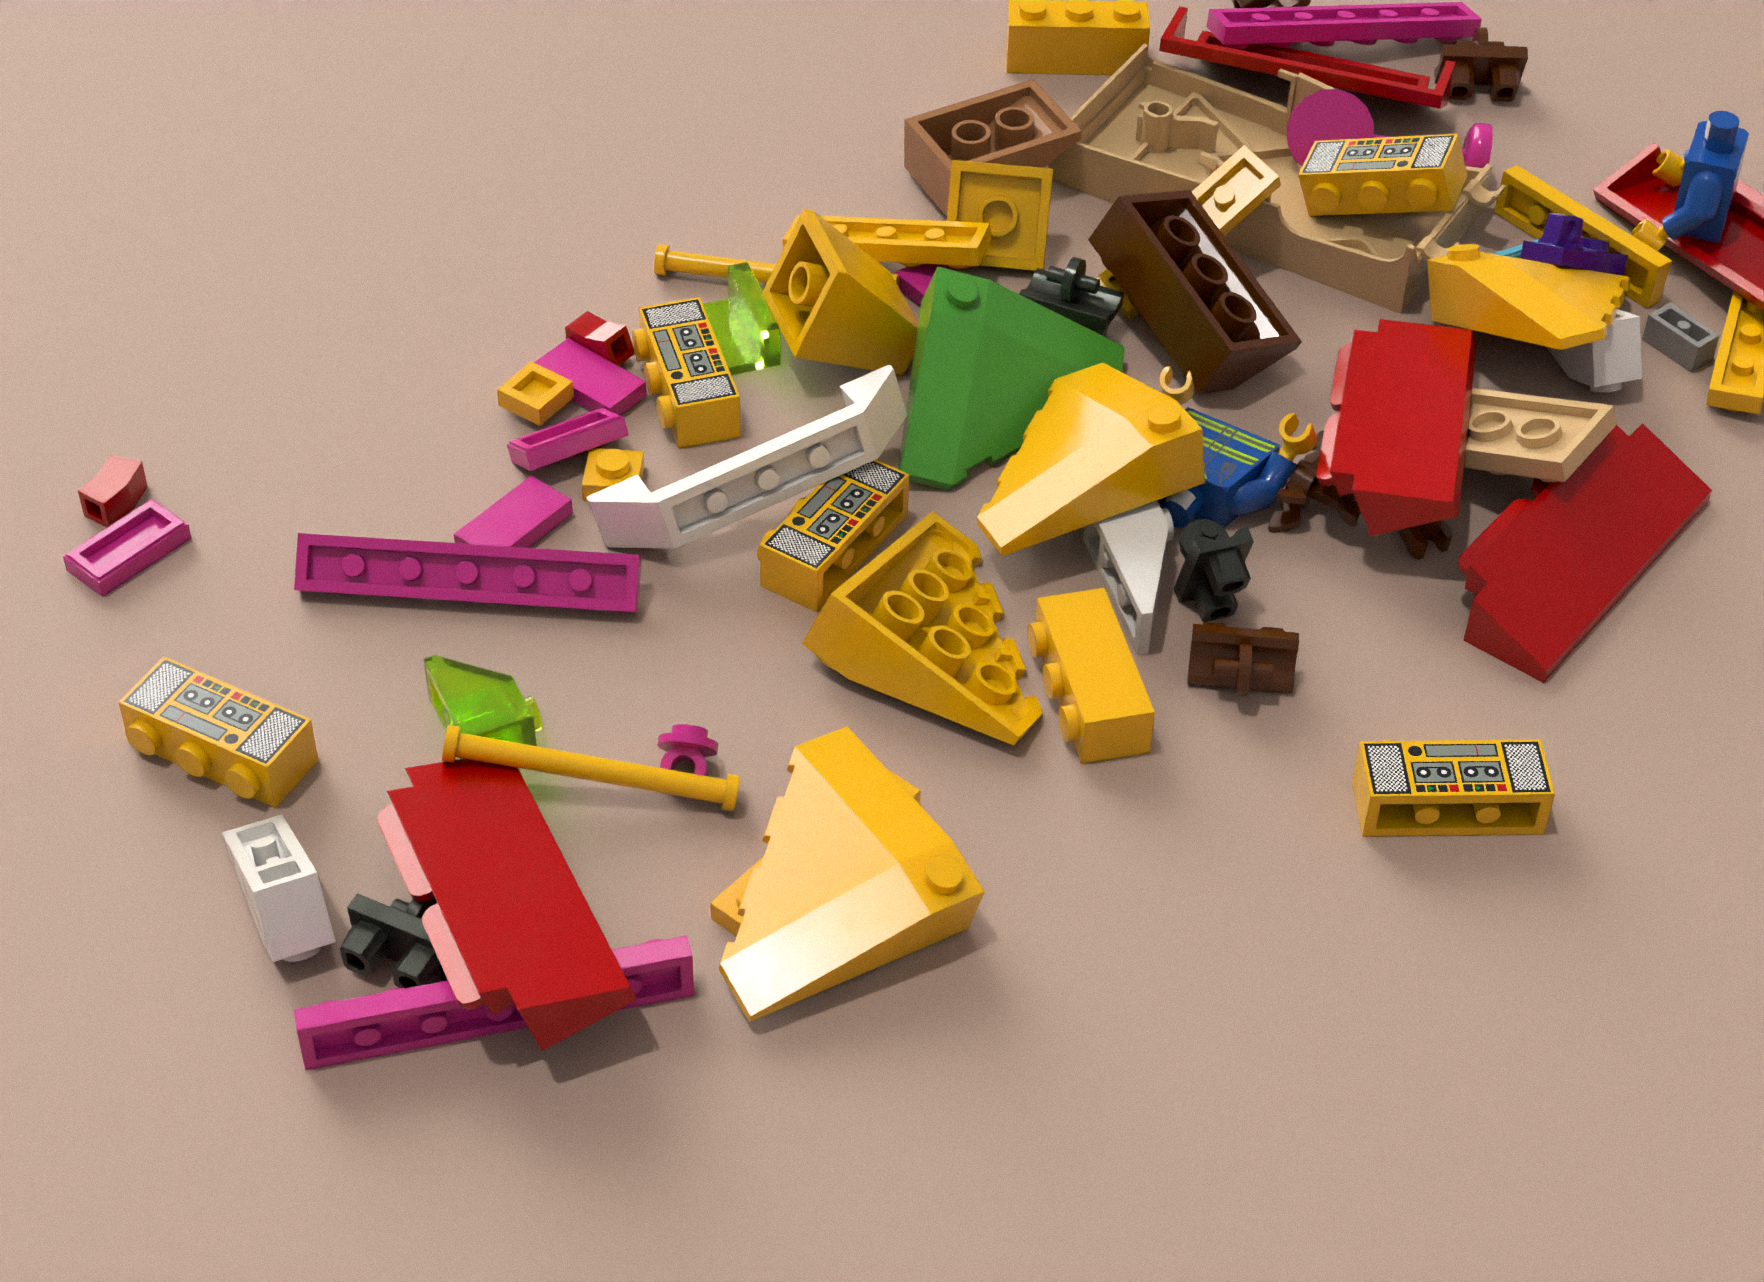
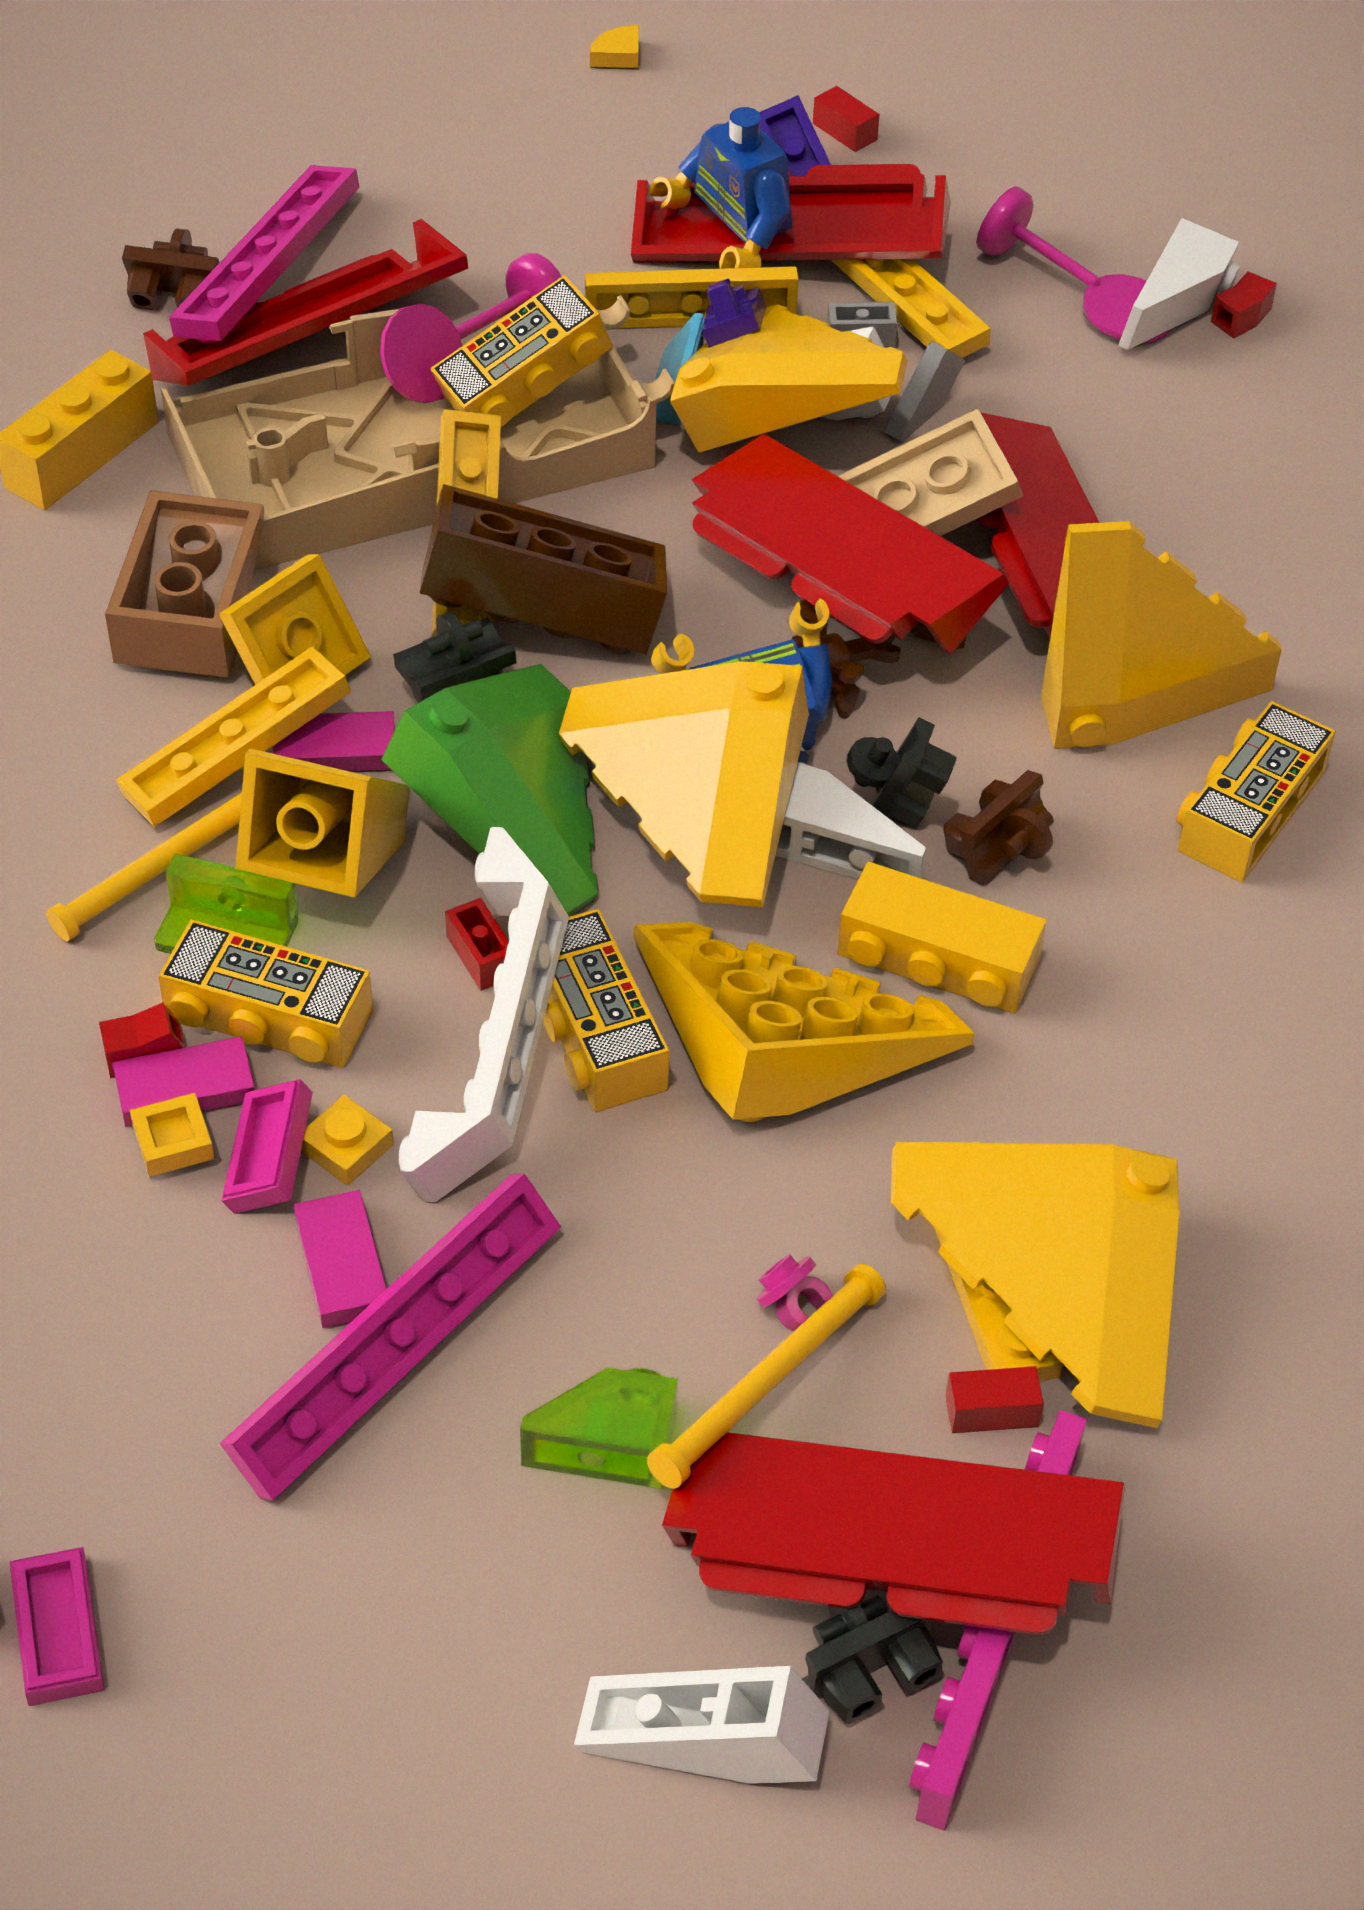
camera: 55 degrees left, 5 degrees up
(219, 732) = (443, 1673): brick -> none
(691, 912) = (994, 1399): none -> red piece
(1477, 627) = (1141, 642): none -> yellow slope
(1483, 64) = (403, 202): reddish brown hips -> none
(1657, 397) = (925, 391): none -> light grey tile

